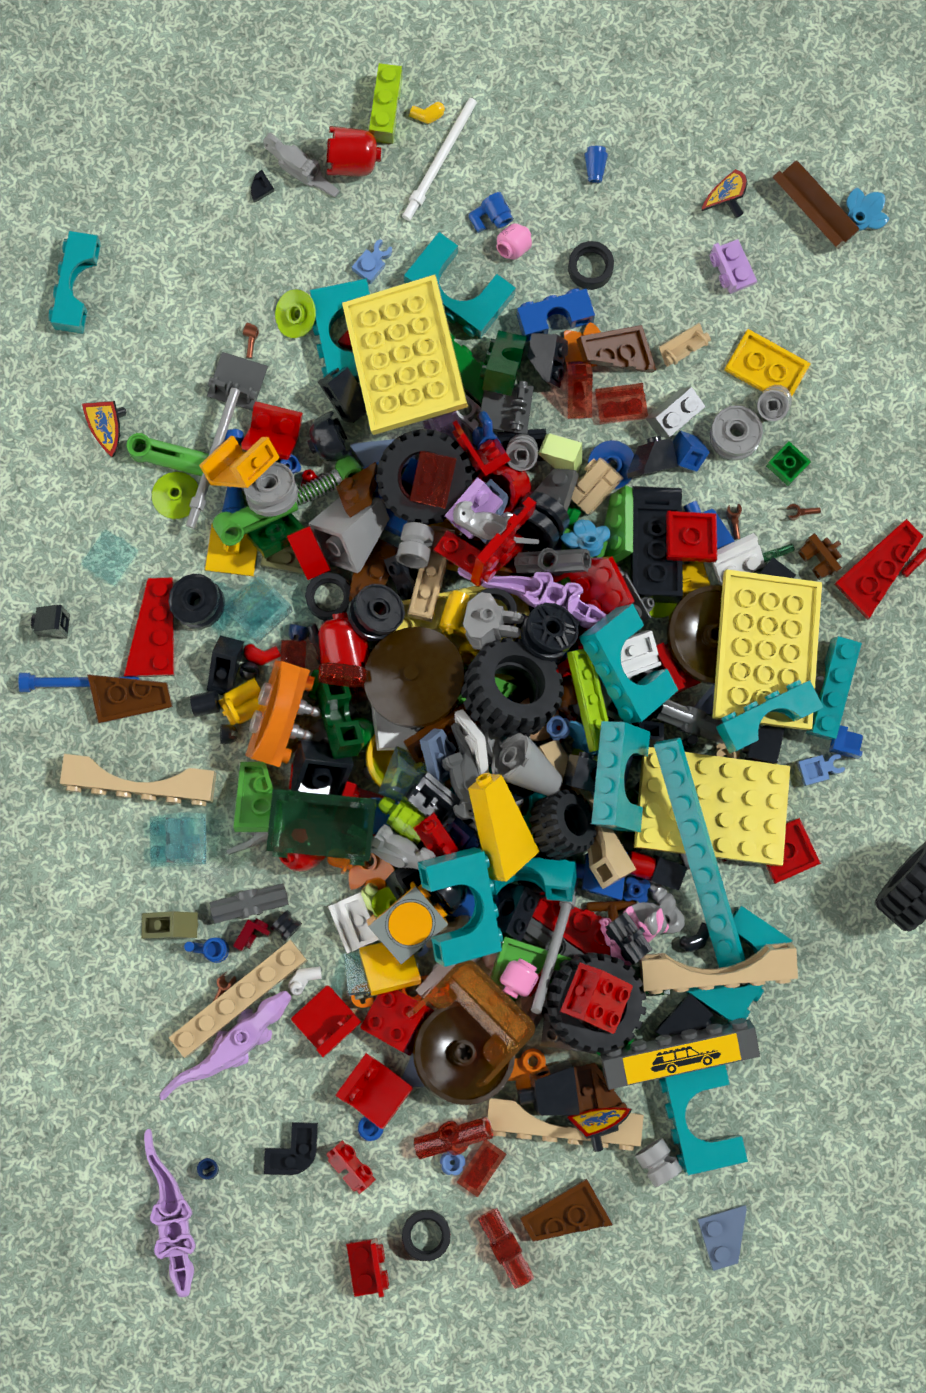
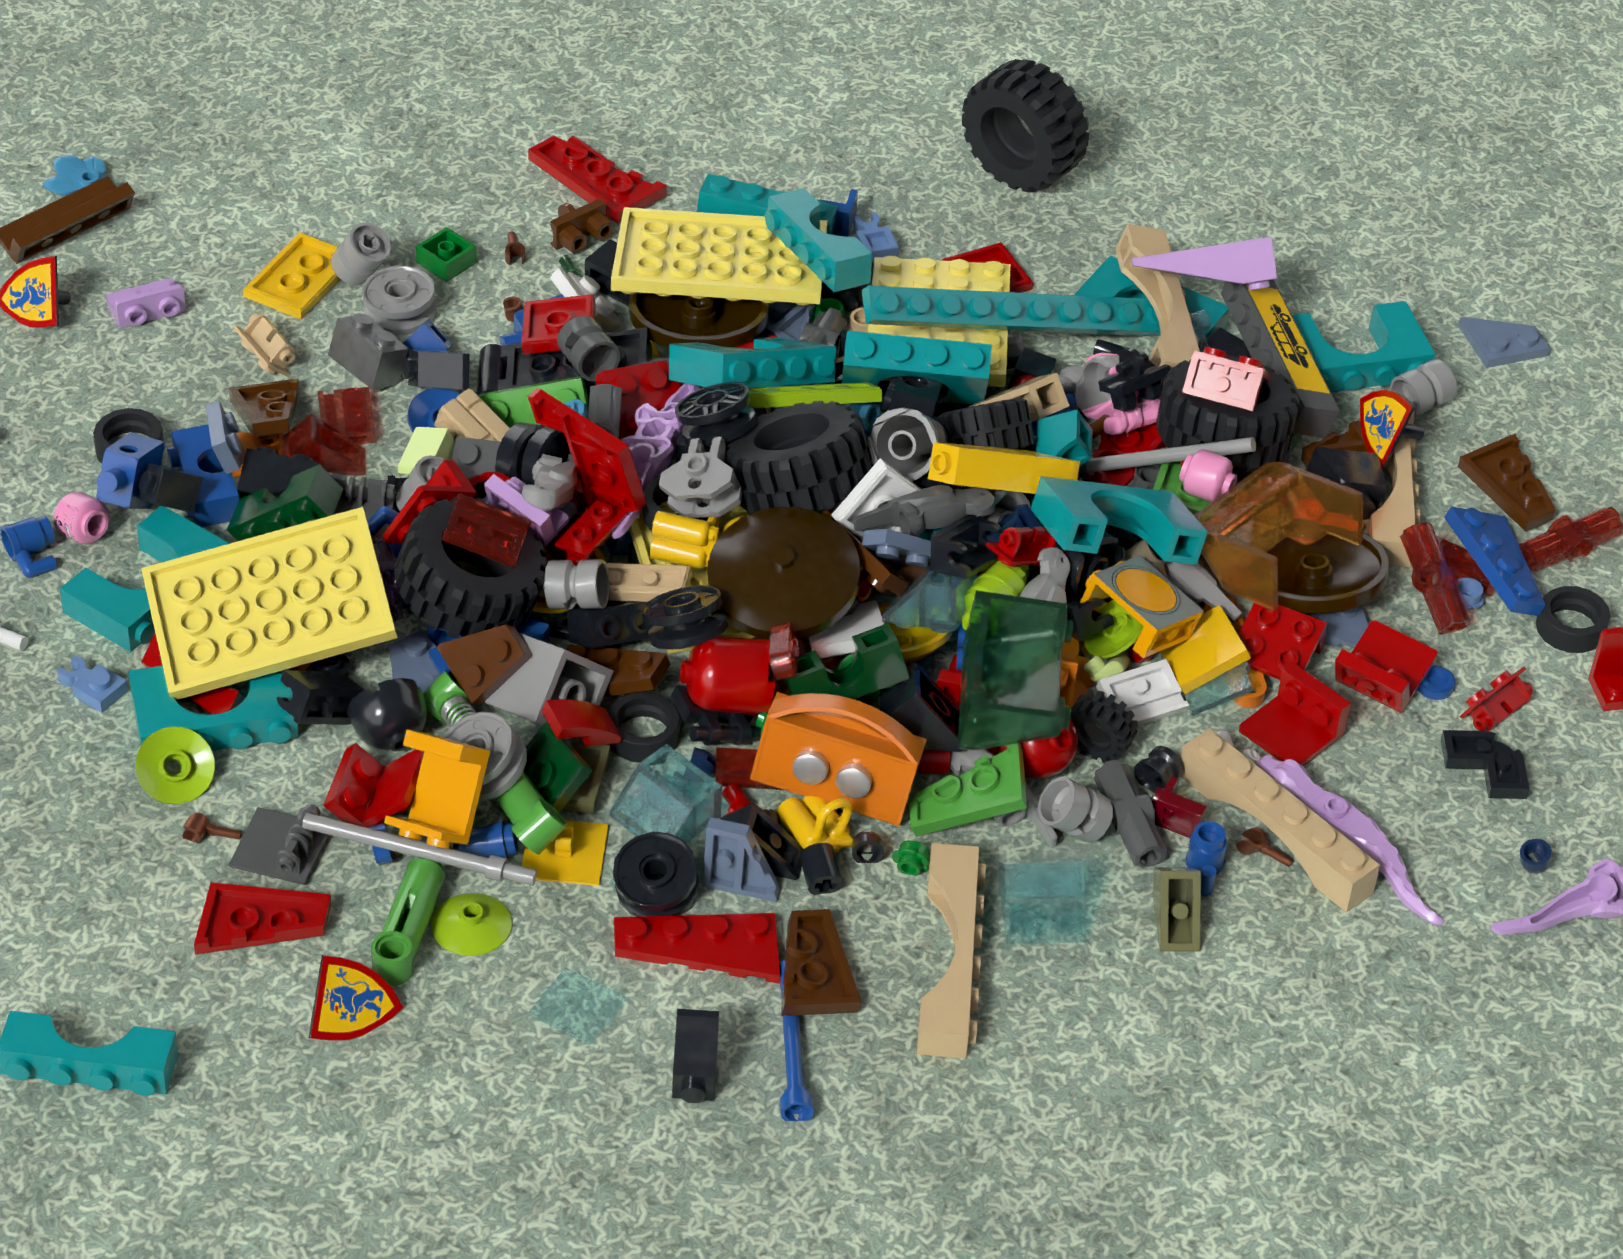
camera: 90 degrees left, 35 degrees down
(178, 369) = (258, 916): none -> red wing
(205, 645) = (736, 862): none -> sand blue wing
(215, 759) = (912, 857): none -> green plate
(241, 865) = (1075, 809): none -> light grey wheel
(315, 888) = (1117, 725): none -> black tyre
(480, 1188) = (1498, 556): none -> blue wing
(527, 288) = (169, 487): none -> black slope
(538, 263) = (123, 468): none -> blue torso
(565, 321) = (224, 437): none -> sand blue wing
(647, 553) = (588, 347): none -> dark grey wheel
(708, 995) = (1201, 323): none -> clear light blue hand
(744, 1014) = (1234, 263): none -> lavender wedge

